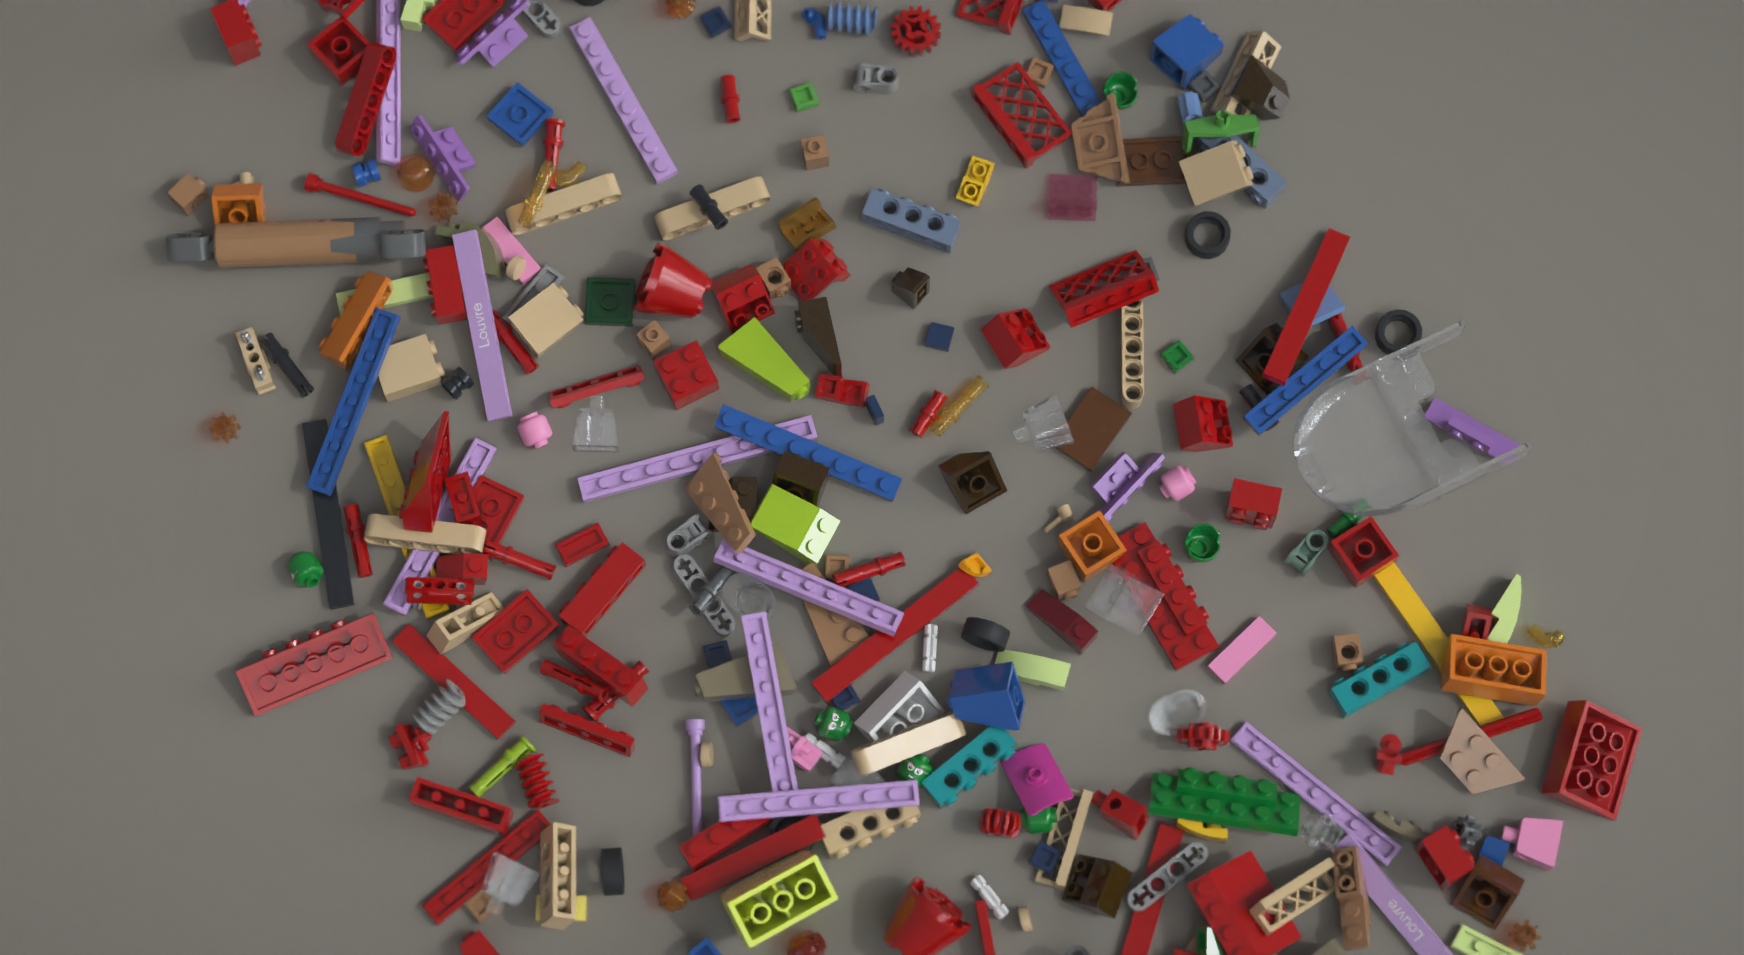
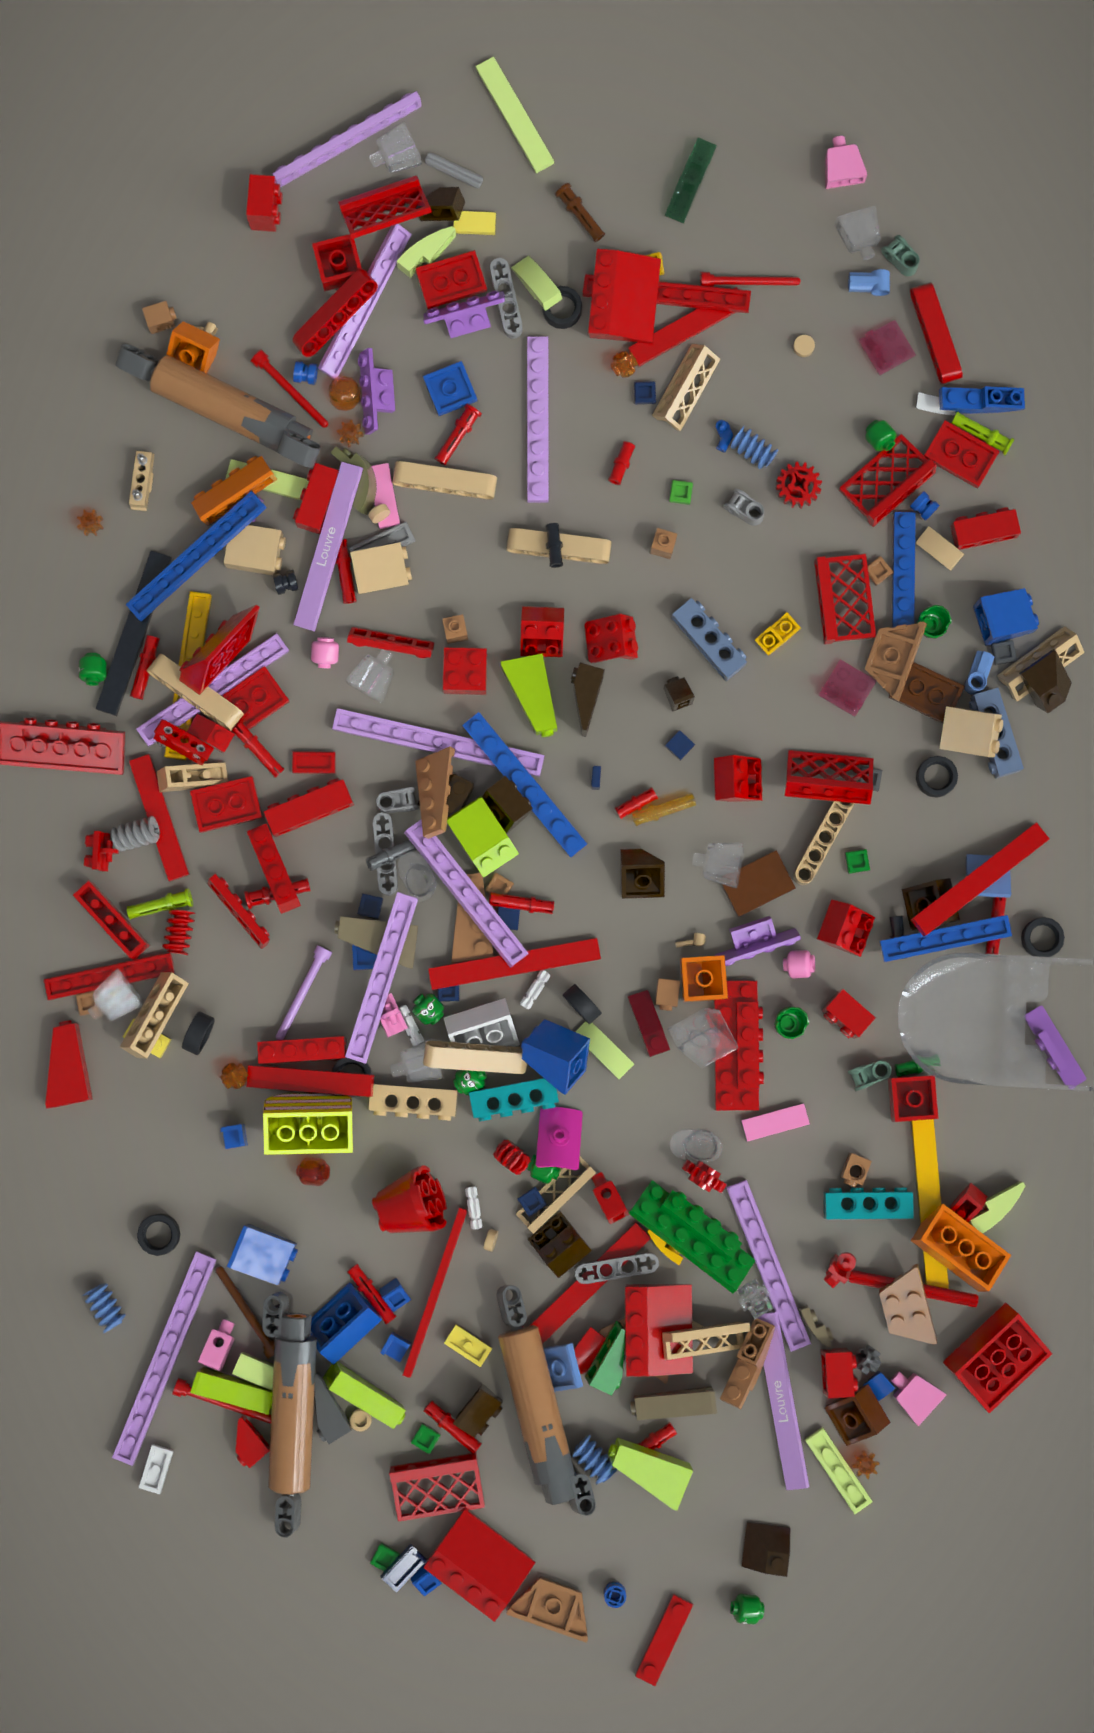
camera: 30 degrees right, 10 degrees up
(281, 357) = (162, 488): black pin -> none
(462, 498) = (239, 678): red plate -> none
(533, 202) = (419, 468): clear yellow pin -> none
(570, 178) = (462, 461): clear yellow arm -> none
(583, 684) = (260, 886): red pin -> none
(609, 301) = (439, 578): dark green tile -> none
(671, 285) = (490, 594): red cone -> none
(706, 754) = (319, 980): tan tile -> none
(774, 269) = (575, 620): medium nougat brick -> none
(805, 224) = (624, 598): pearl gold bracket -> none
(818, 801) = (381, 1066): lavender tile -> none
(842, 391) = (580, 747): red slope -> none
(975, 566) = (605, 944): light orange tile -> none
(1220, 126) = (996, 696): bright green piece -> none
(1548, 639) = (1018, 1244): clear yellow arm -> none

